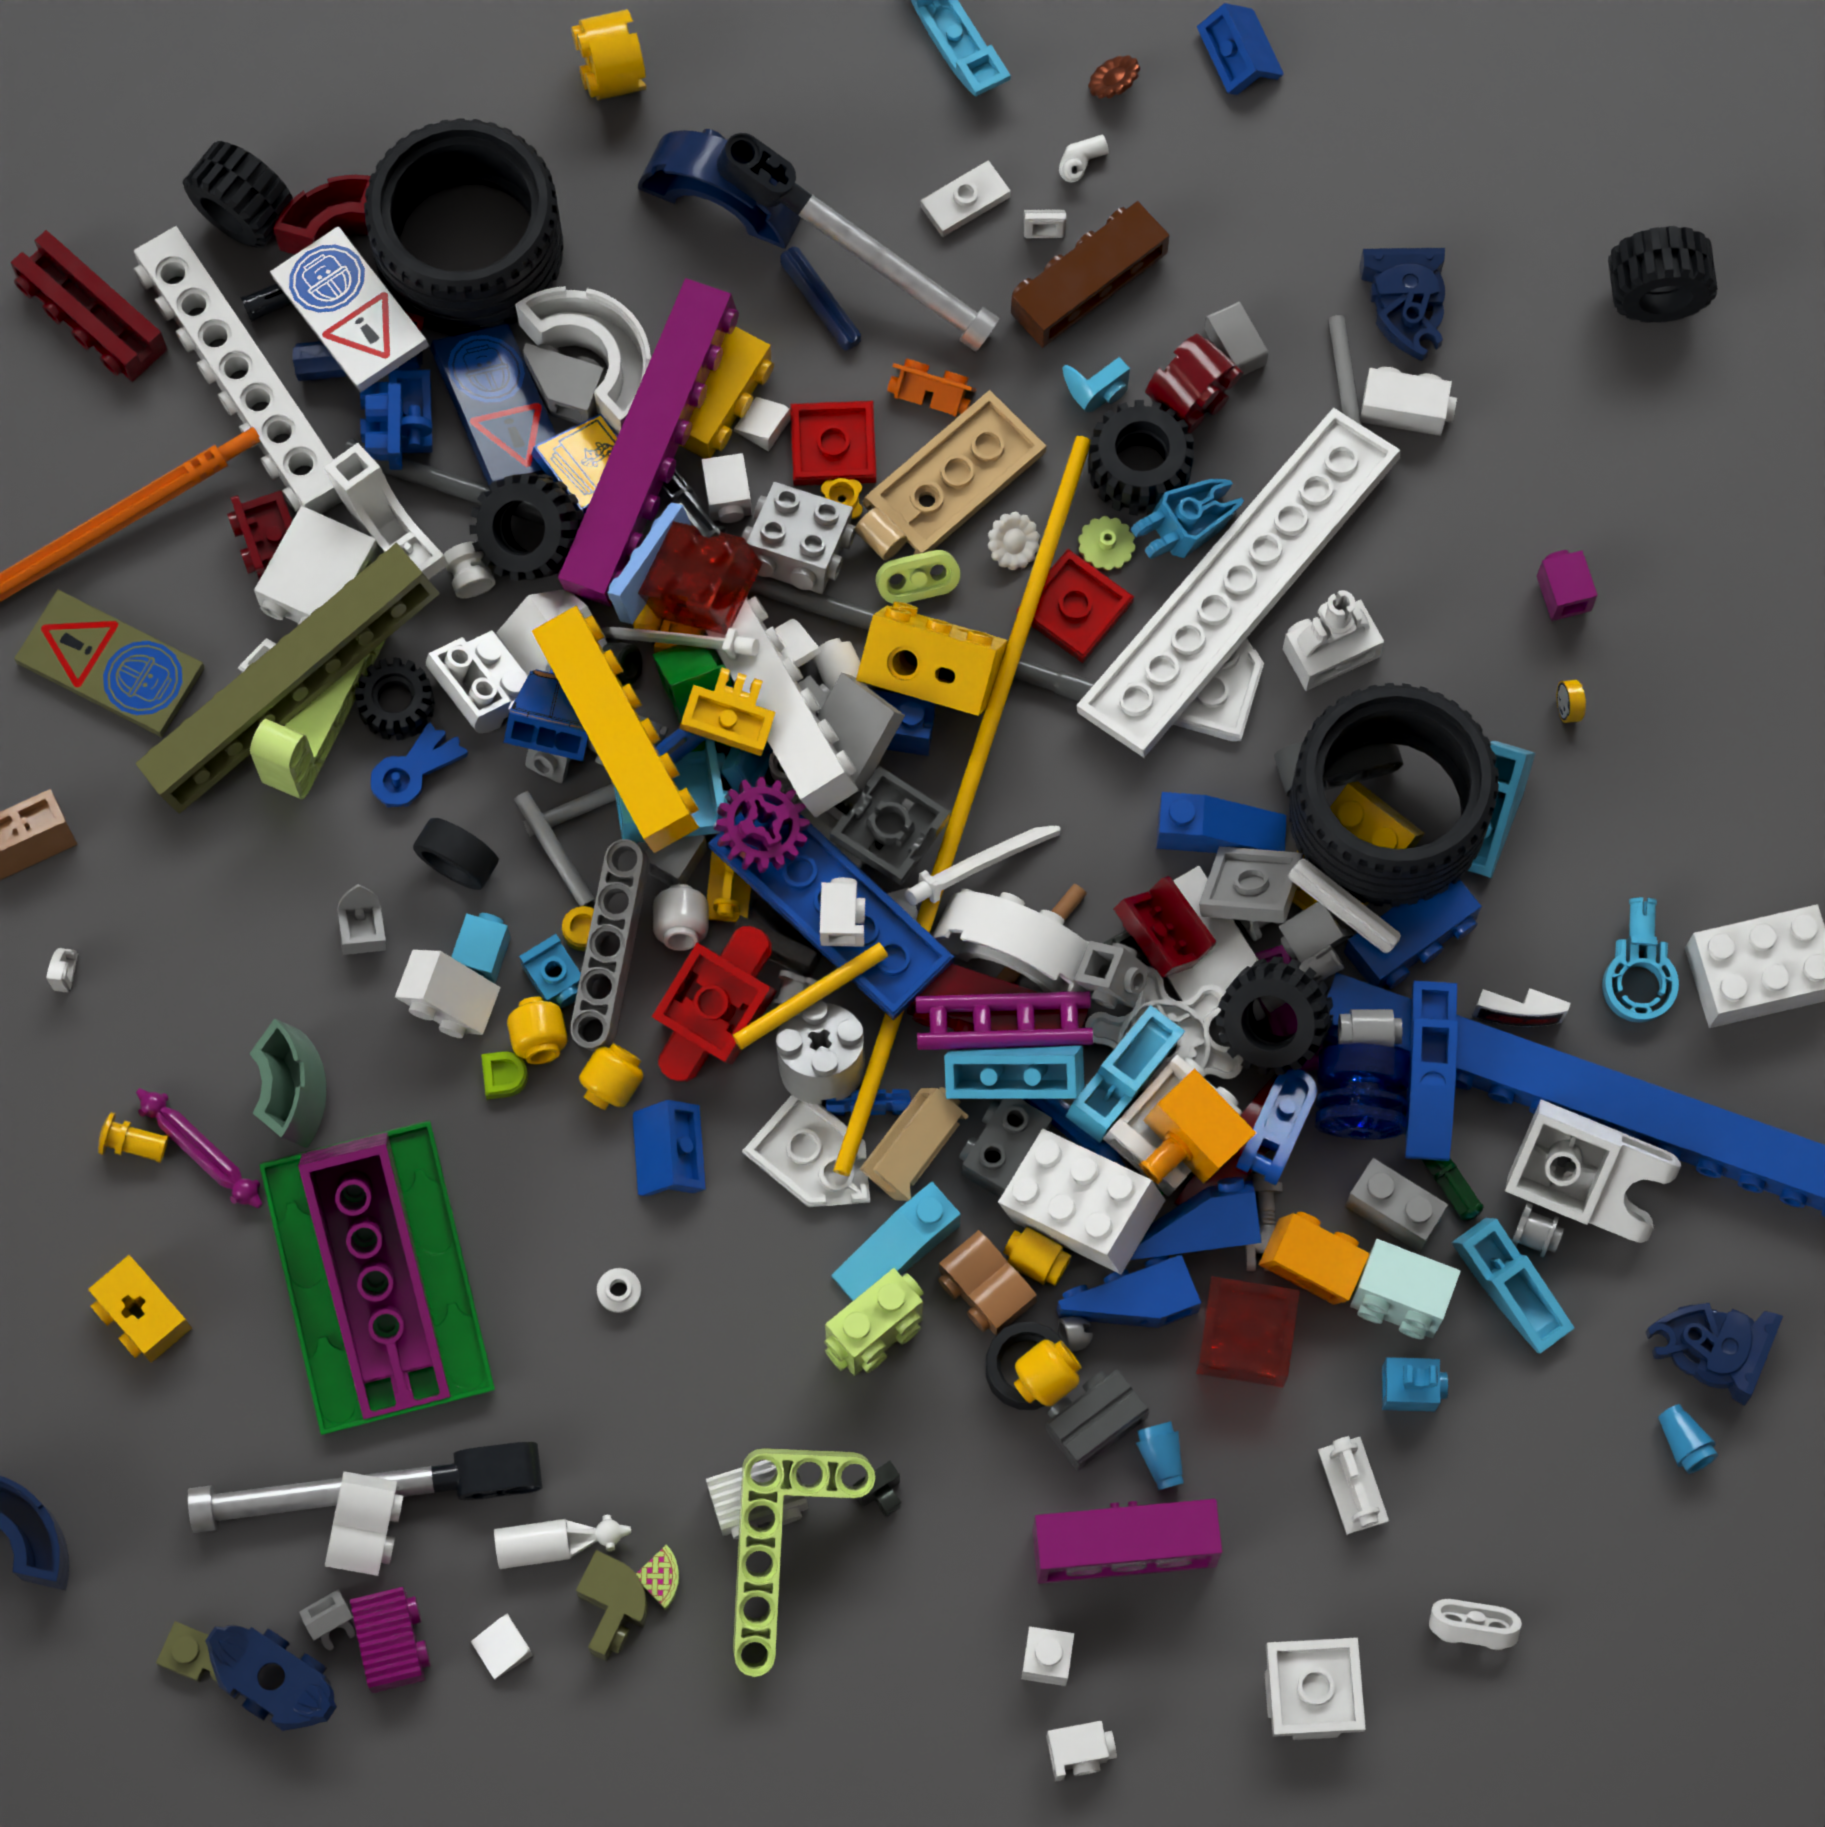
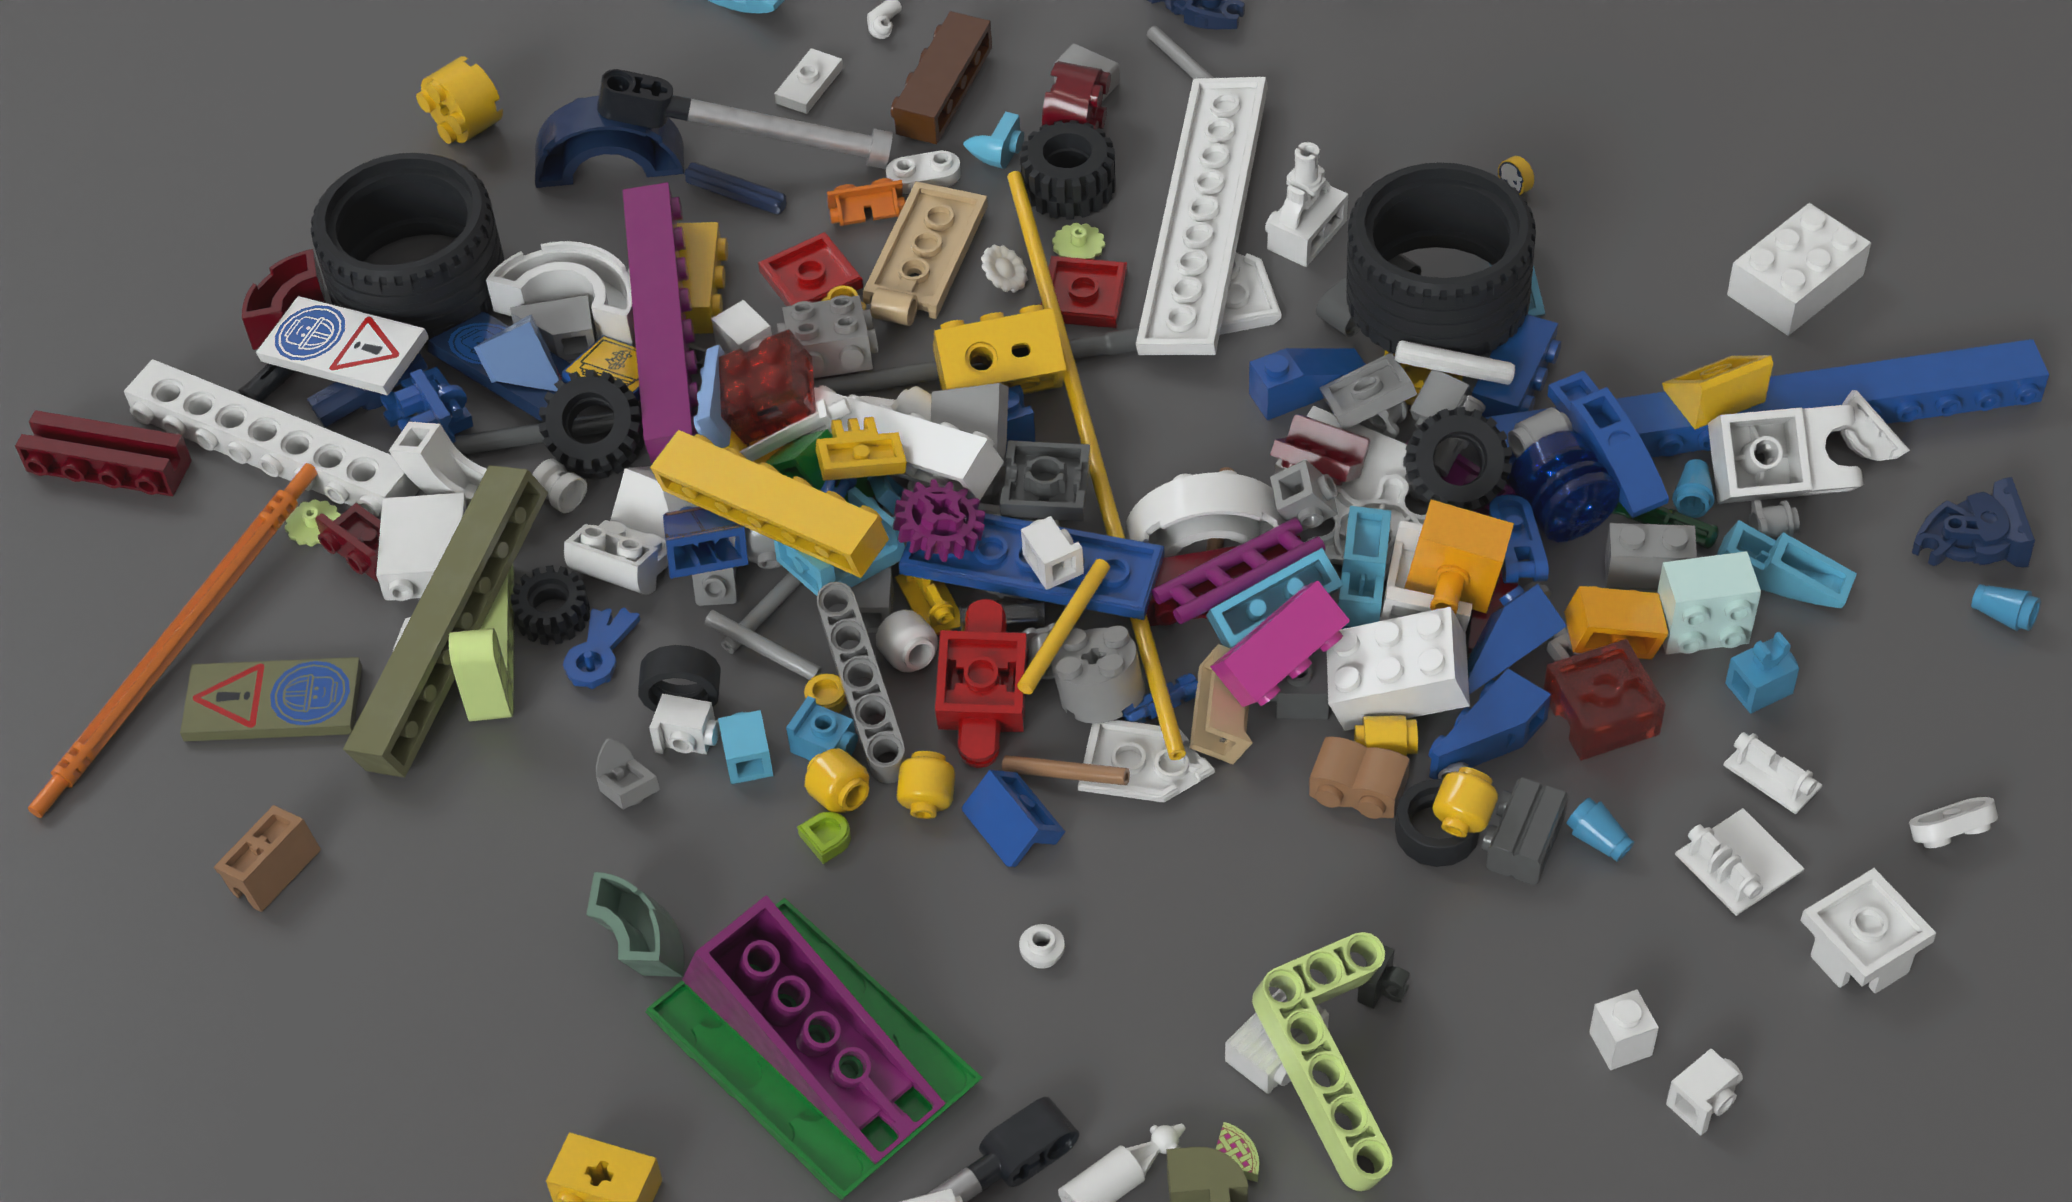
camera: 25 degrees left, 20 degrees down
(62, 969) = (366, 949): white tile -> none
(131, 1140) = (512, 1048): yellow pin -> none
(199, 1148) = (581, 1026): magenta wheel -> none
(237, 193) = (195, 311): black tyre -> none
(240, 479) = (302, 523): none -> yellowish green piece
(439, 897) = (684, 725): none -> white brick
(447, 993) = (738, 783): white brick -> none
(504, 411) = (519, 357): none -> medium blue slope
(739, 1130) = (1066, 770): none -> medium nougat piece
(764, 422) = (744, 284): white slope -> none
(874, 1322) = (1289, 845): yellowish green brick -> none
(899, 1241) = (1263, 786): medium azure slope -> none
(917, 580) = (938, 315): yellowish green plate -> none
(931, 886) = (1110, 509): white sword -> none
(981, 1130) = (1281, 645): none -> dark pink brick
(1007, 377) = (933, 168): none -> white plate
(1044, 223) = (883, 66): white slope -> none
(1126, 1540) = (1624, 899): magenta brick -> none
(1188, 517) = (1133, 189): dark azure hinge -> none
(1264, 1552) = (1738, 861): none -> white hinge
(1407, 401) = (1246, 51): white brick -> none
(1490, 1154) = (1694, 490): none -> dark azure cone
(1535, 1011) = (1646, 379): white slope -> none
(1566, 584) = (1456, 104): magenta brick -> none
(1573, 1068) = (1721, 388): none -> yellow slope
(1640, 938) = (1702, 303): medium azure pin -> none
(1694, 1189) = (1870, 434): none -> white tile

